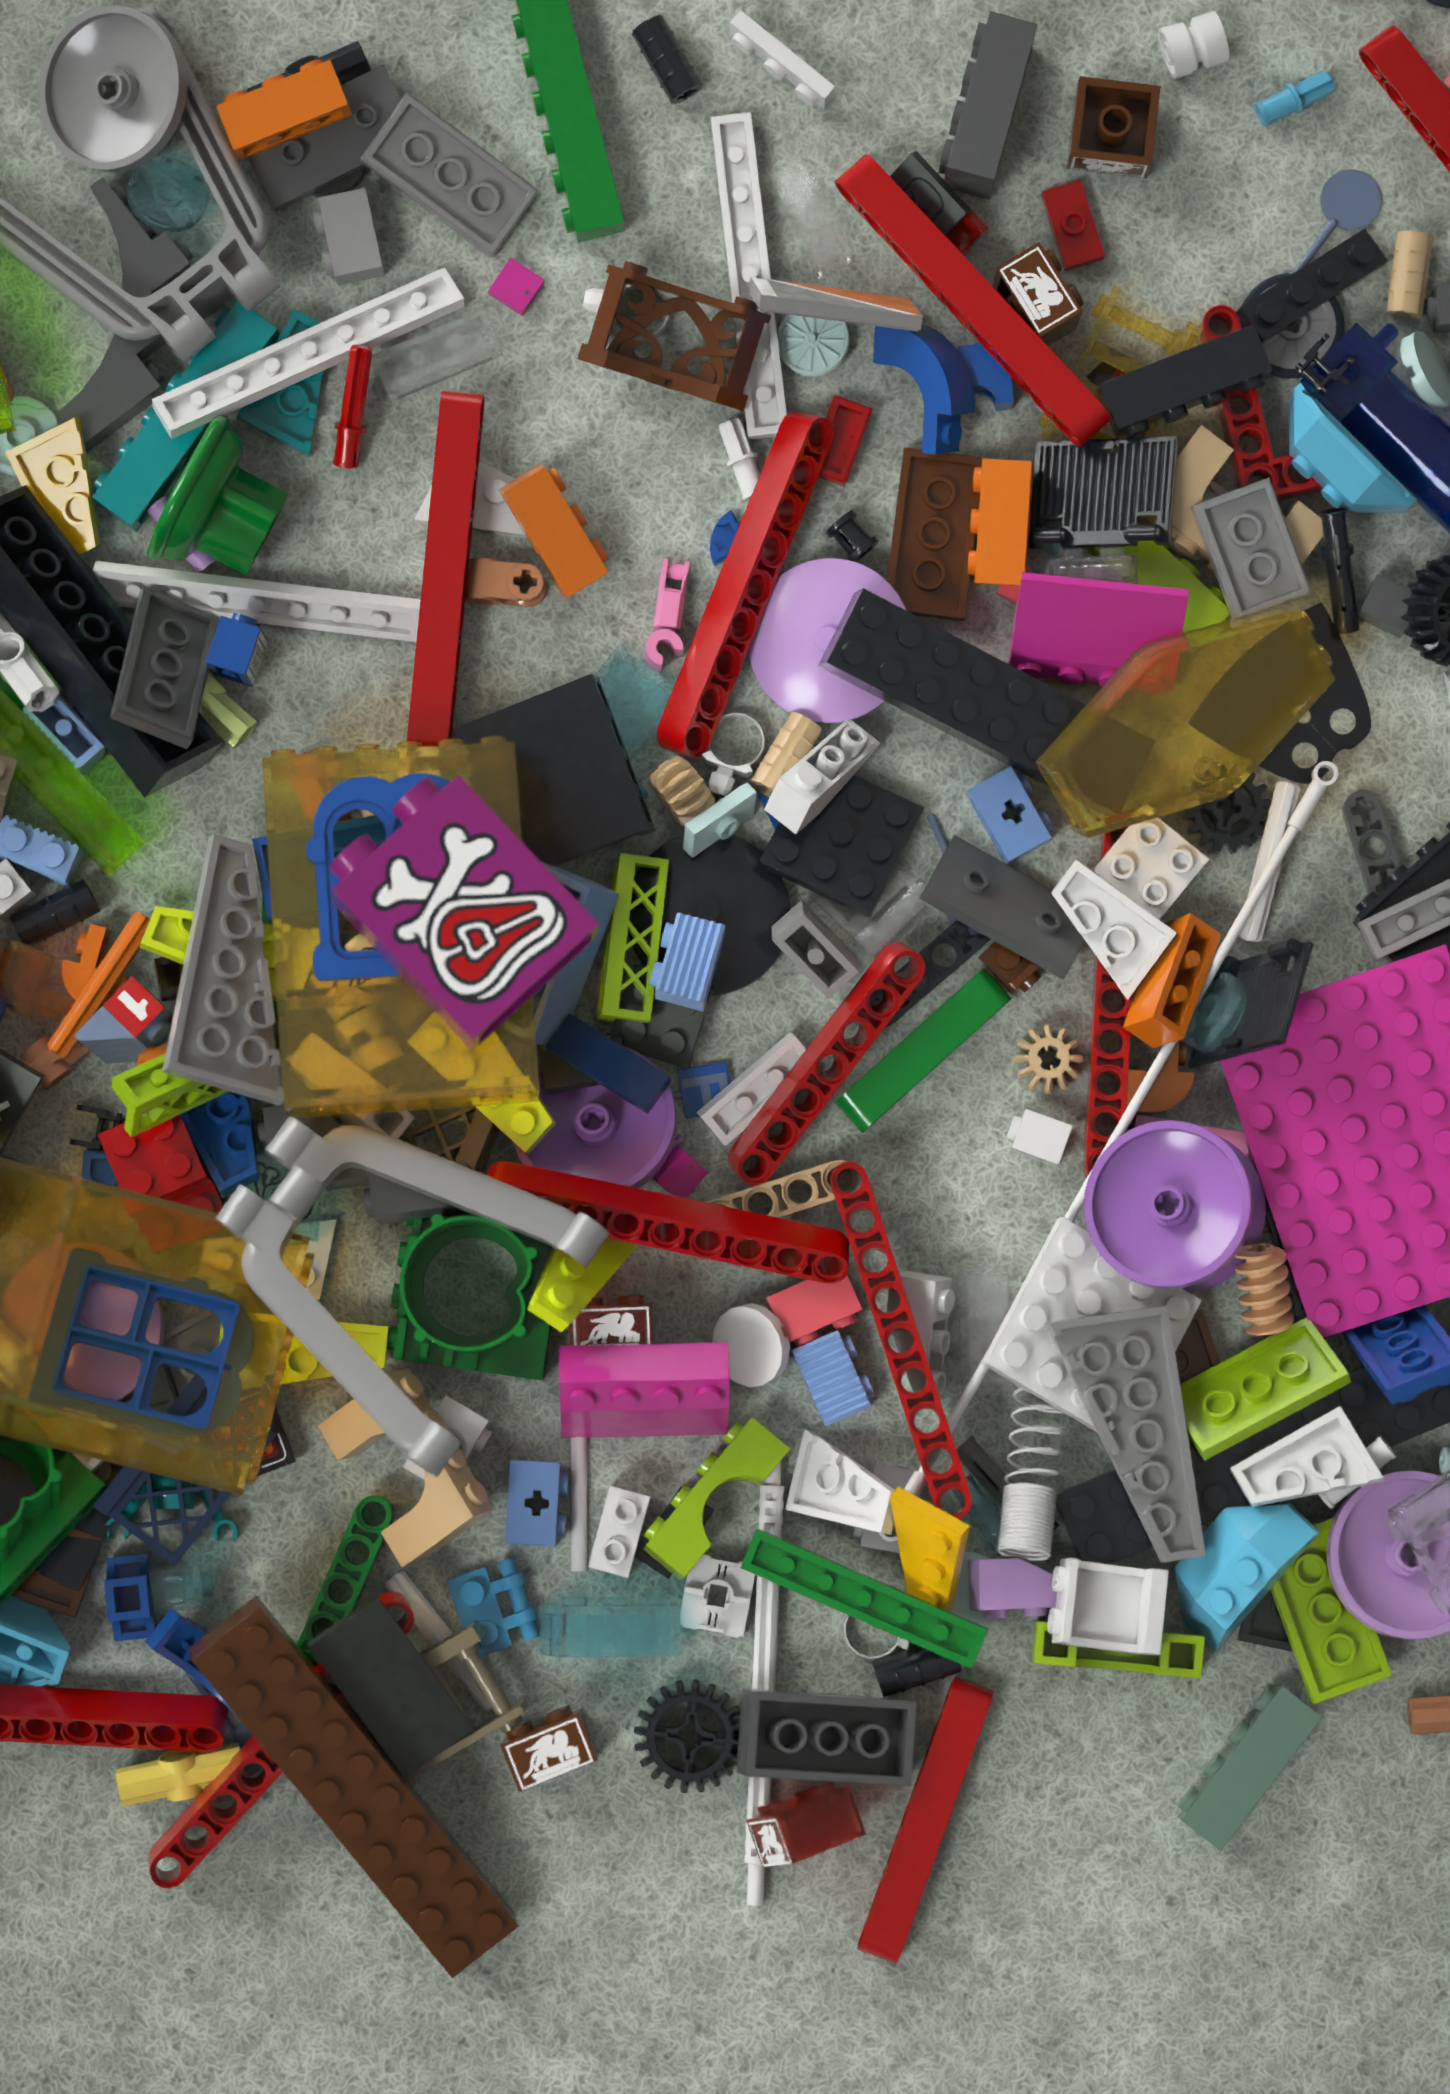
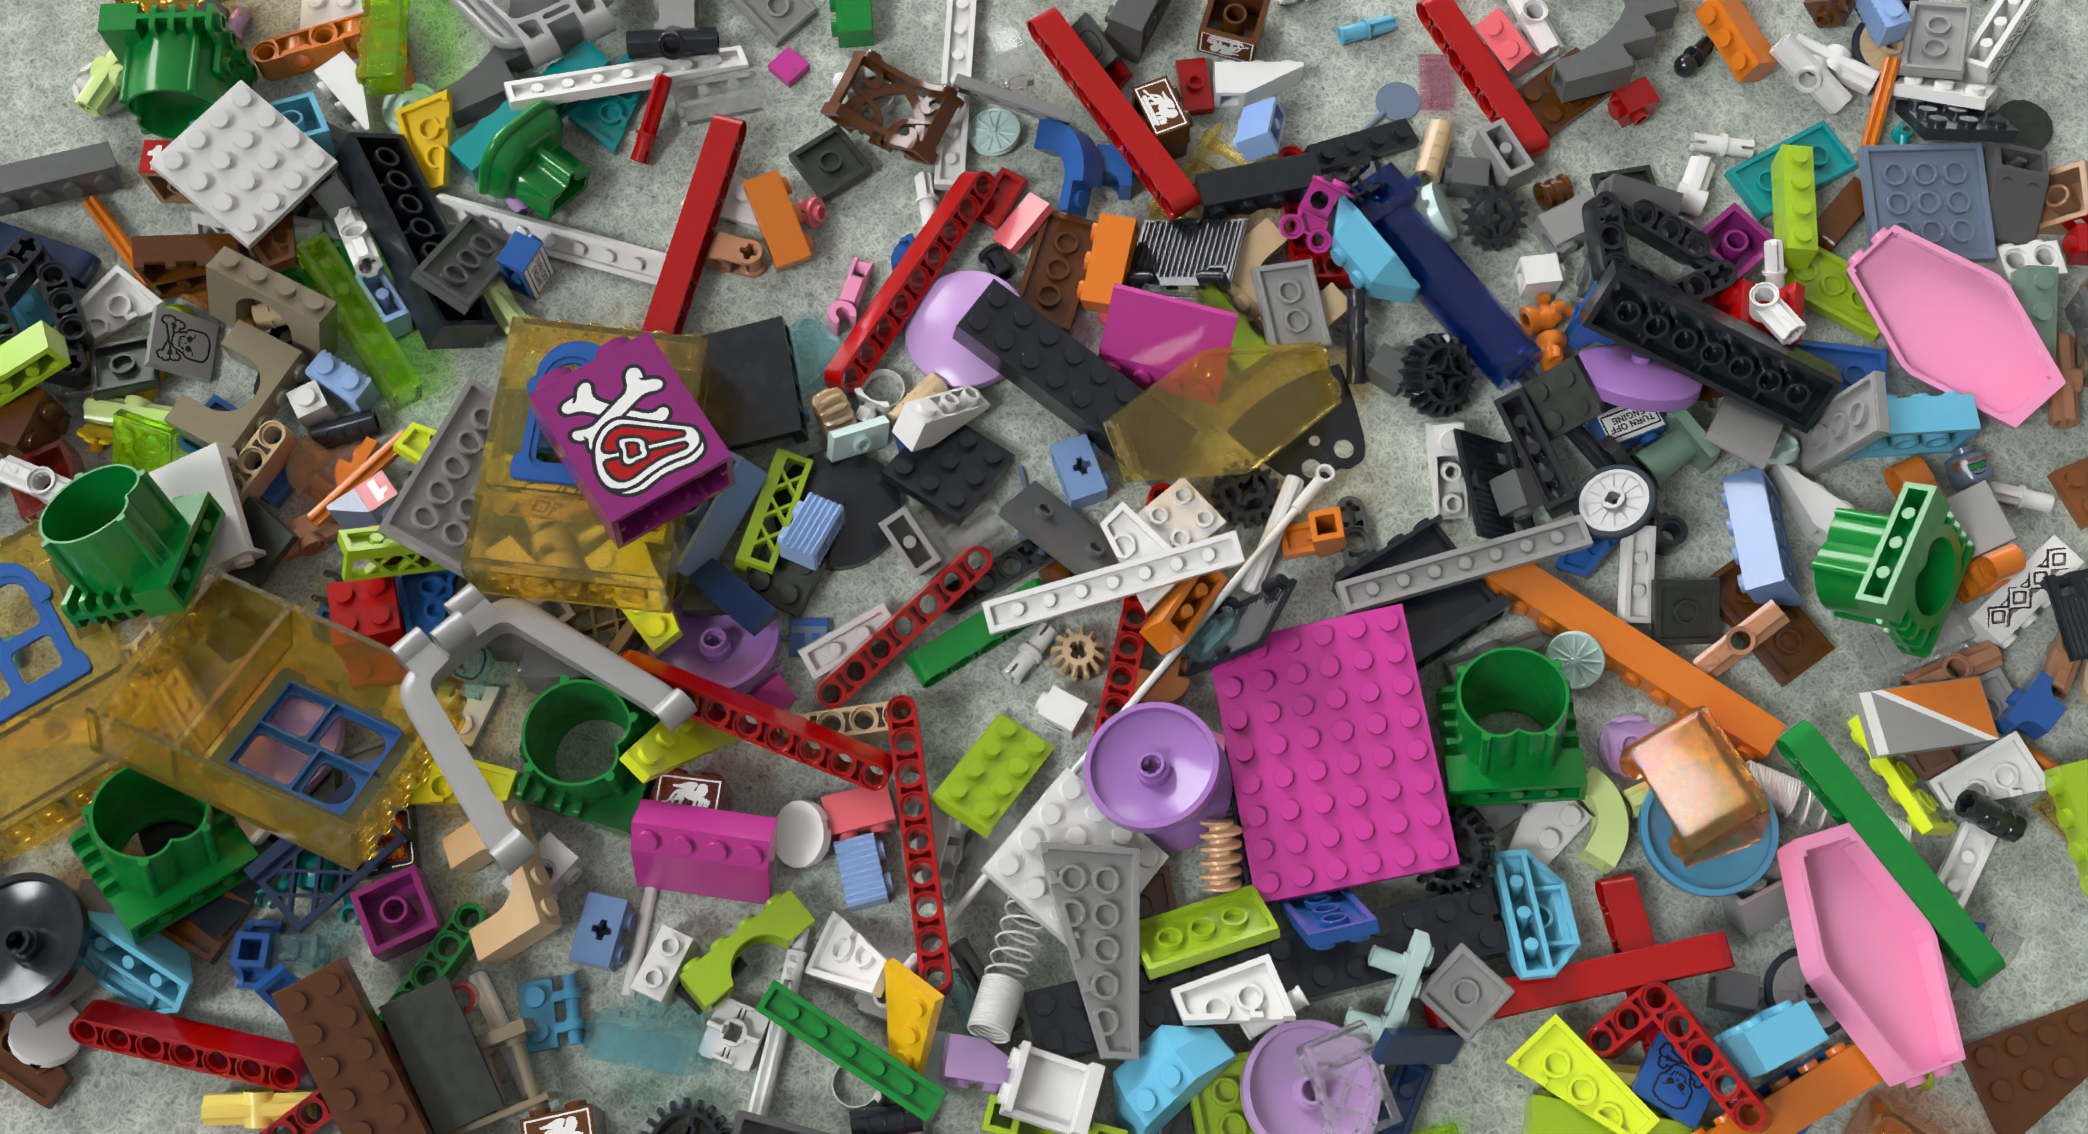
camera: 10 degrees right, 15 degrees down
(287, 1522) = (398, 913): none -> magenta brick
(376, 284) = (653, 43): none -> black piece
(595, 503) = (812, 211): none -> coral plate
(603, 425) = (830, 163): none -> pearl dark grey plate
(876, 475) = (1022, 223): none -> coral tile
(972, 1235) = (992, 775): none -> lime plate
(987, 1066) = (1030, 653): none -> white pin
(1082, 971) = (1113, 582): none -> white plate
(1139, 213) = (1248, 82): none -> white slope
(1173, 288) = (1260, 129): none -> light blue brick
(1262, 421) = (1312, 220): none -> dark pink piece
(1322, 855) = (1319, 536): none -> orange brick
(1397, 163) = (1434, 82): none -> clear pink tile

